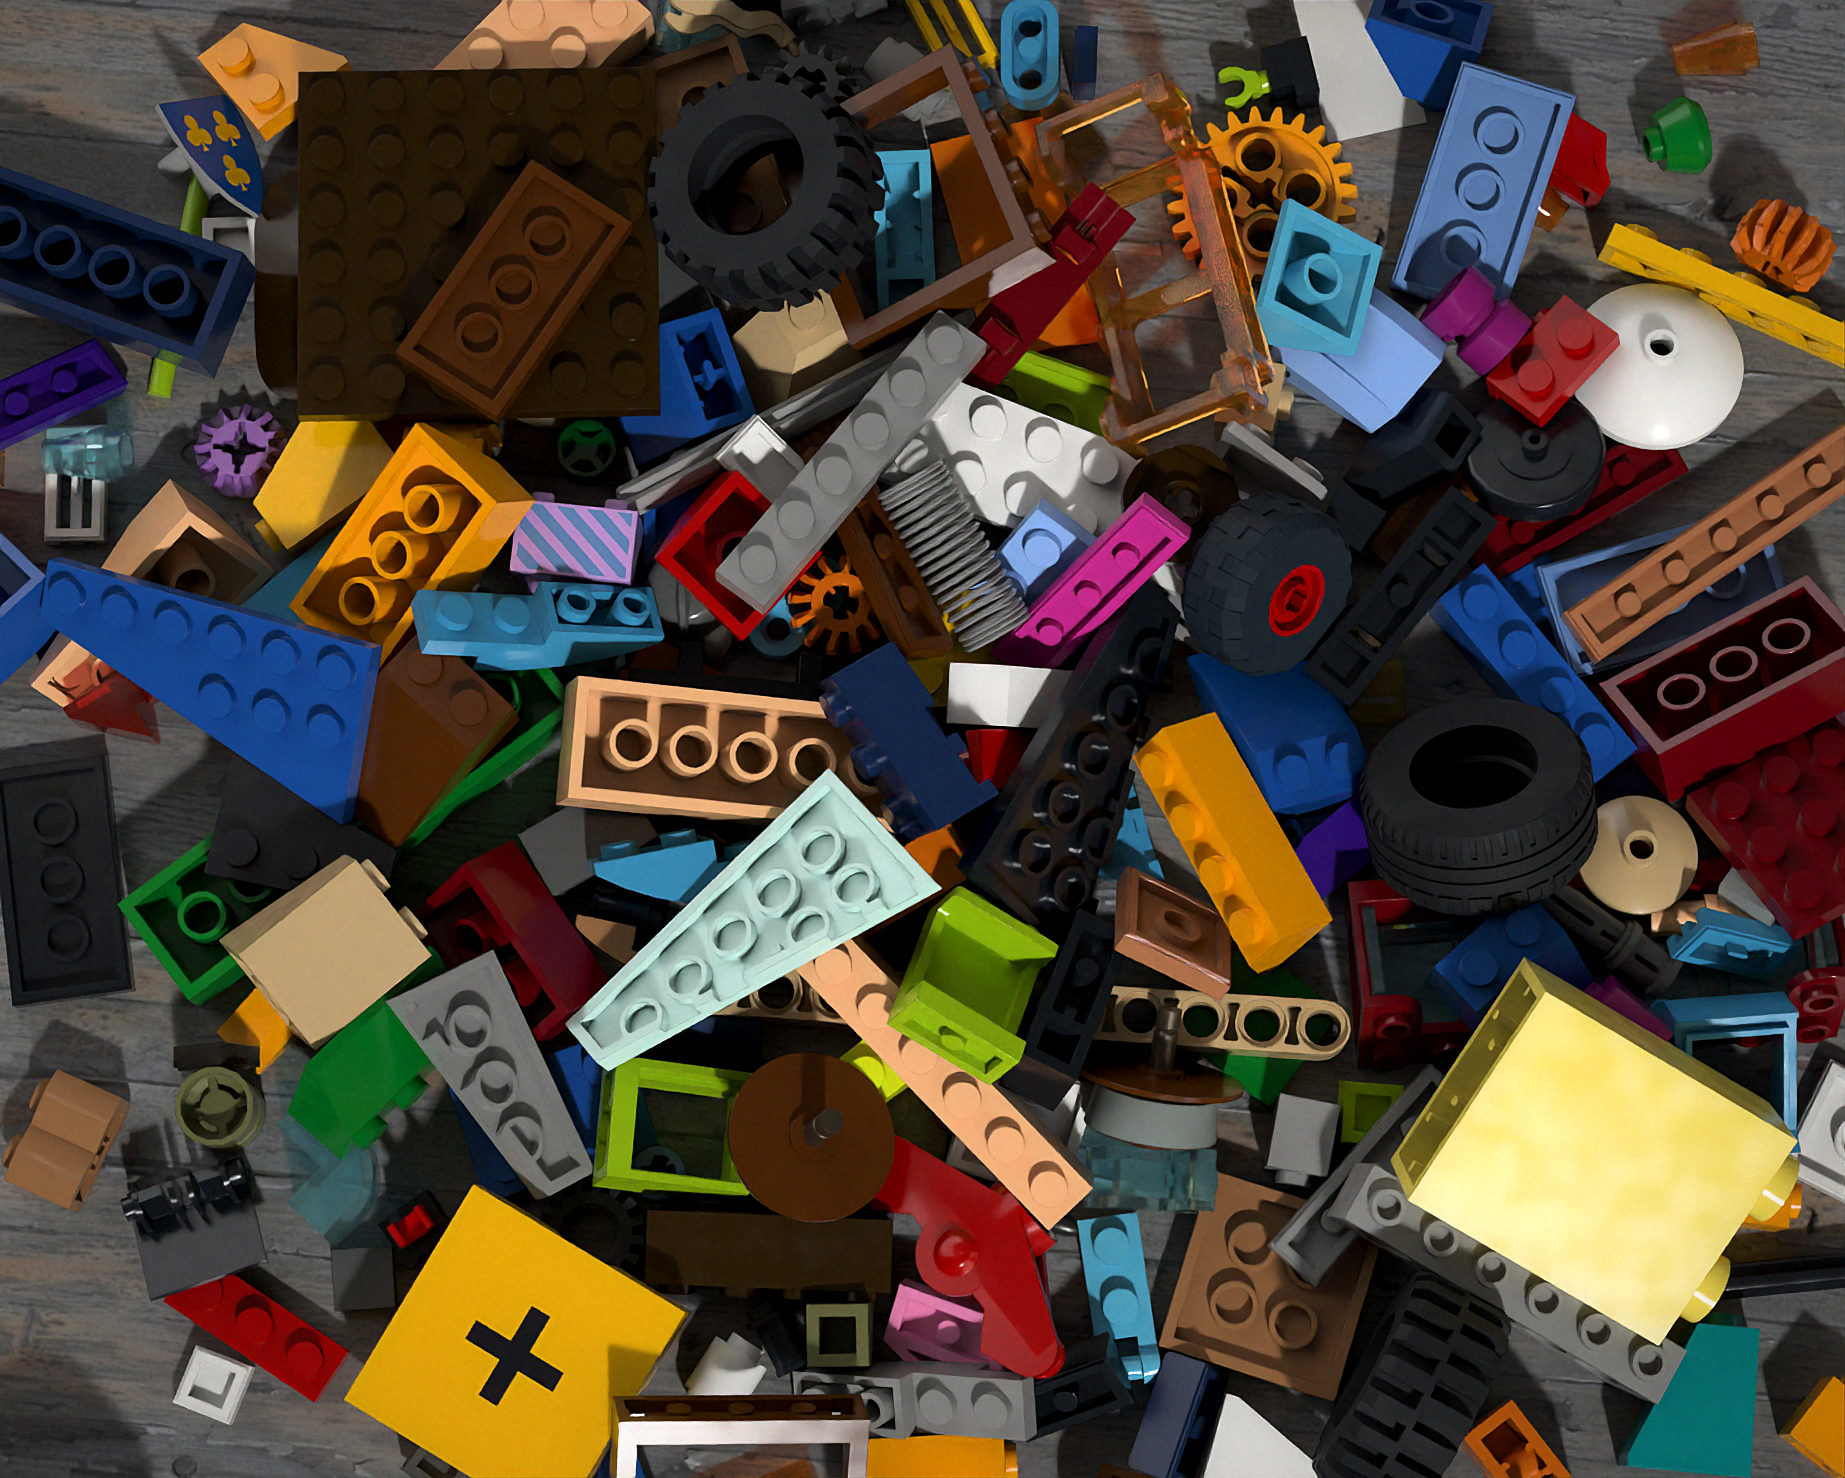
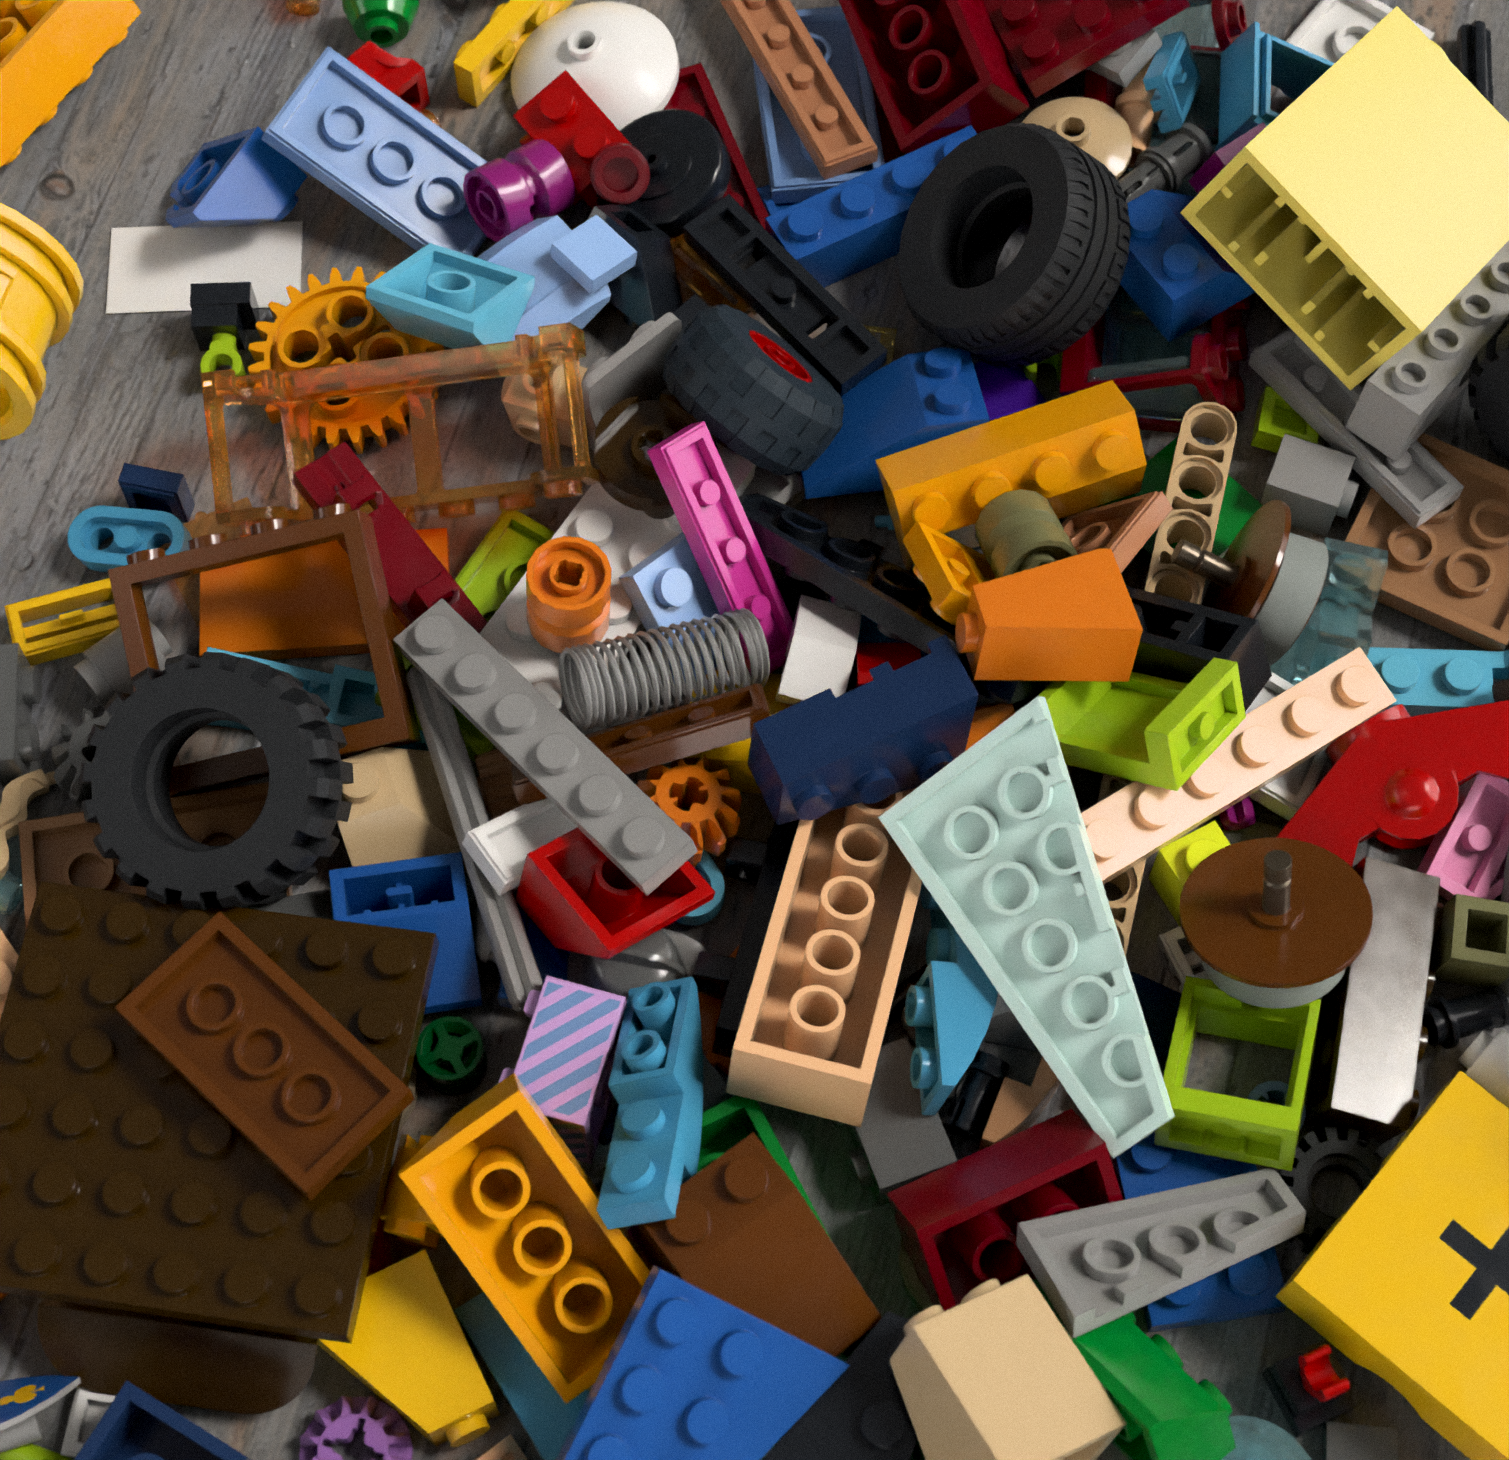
camera: 80 degrees left, 15 degrees down
(1001, 453) = (568, 593): none -> orange wheel
(1037, 890) = (1052, 623): none -> orange slope
(1093, 808) = (946, 569): none -> light orange wing
(1136, 865) = (1021, 533): none -> olive wheel
(1395, 404) = (593, 254): none -> light blue tile
(1506, 411) = (619, 173): none -> dark red tile

